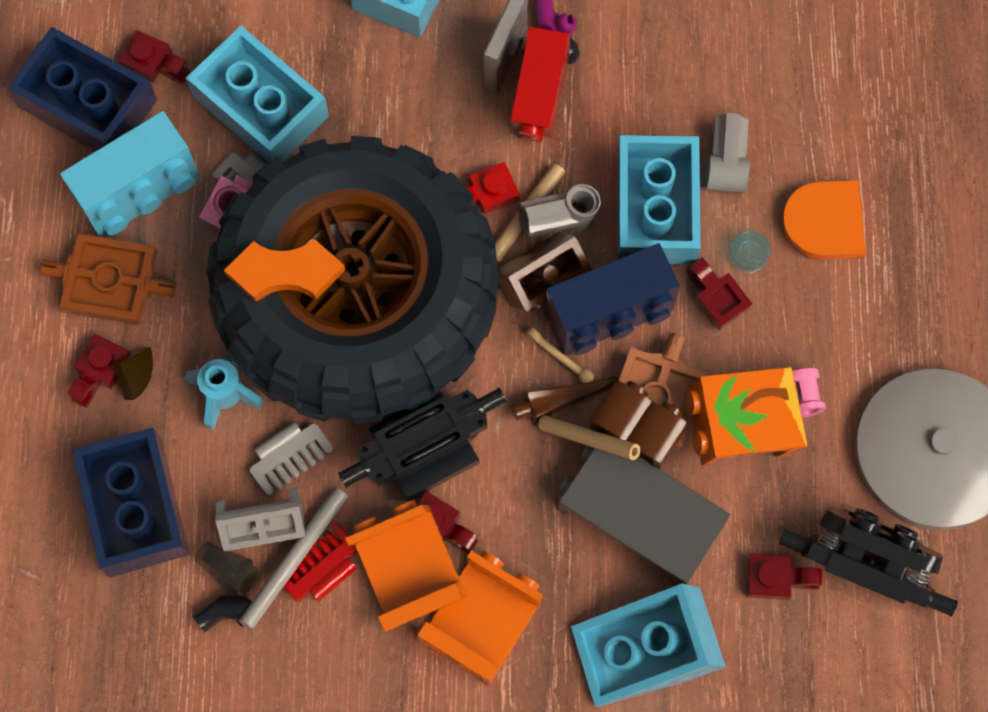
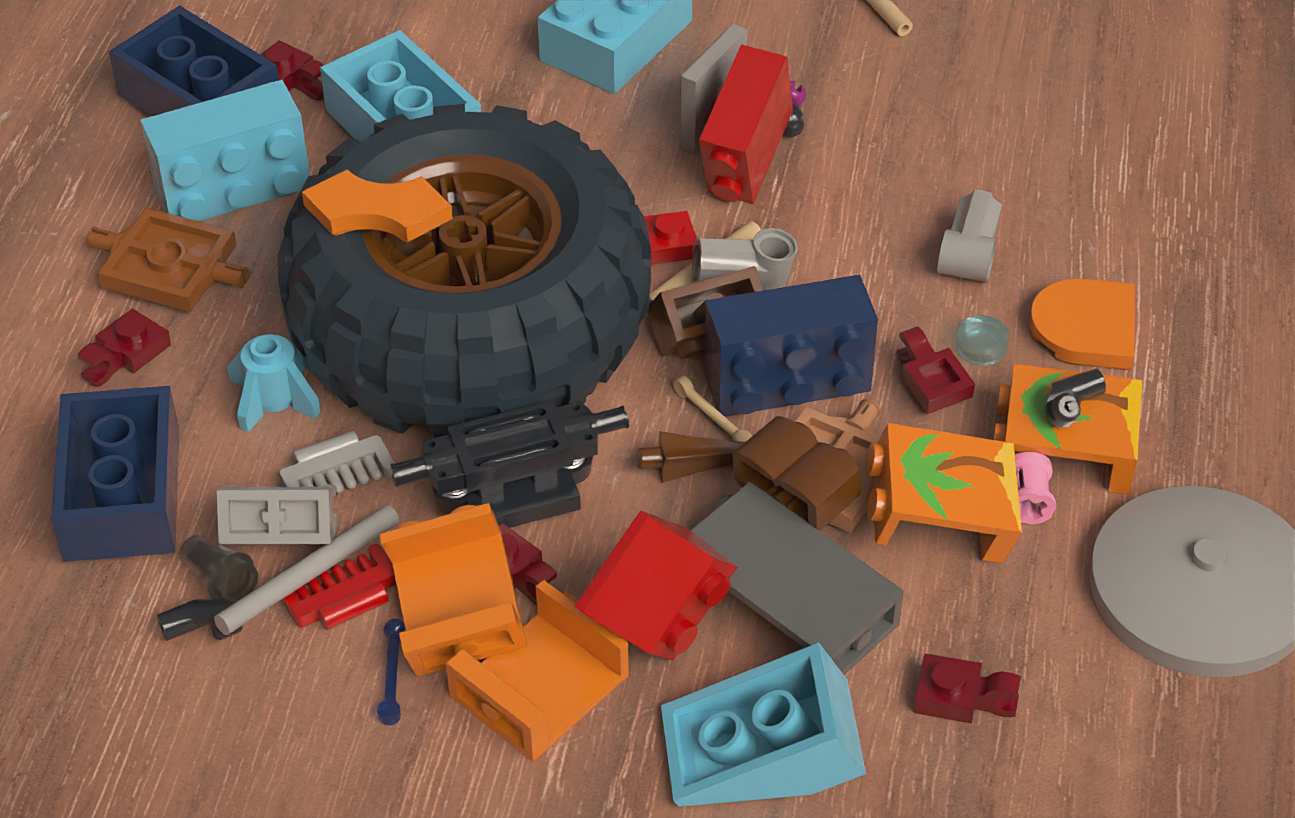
camera: 10 degrees right, 25 degrees down
(134, 372) = (167, 352): dark brown tile -> none
(379, 663) = (389, 710): none -> clear blue hinge
(559, 549) = (657, 586): none -> red slope
(589, 437) = (730, 480): tan piece -> none
(659, 196) = (884, 241): medium azure brick -> none
(825, 320) = (1065, 396): none -> black arm
(827, 329) = (1102, 433): none -> orange panel
(898, 546) = (1128, 657): black piece -> none

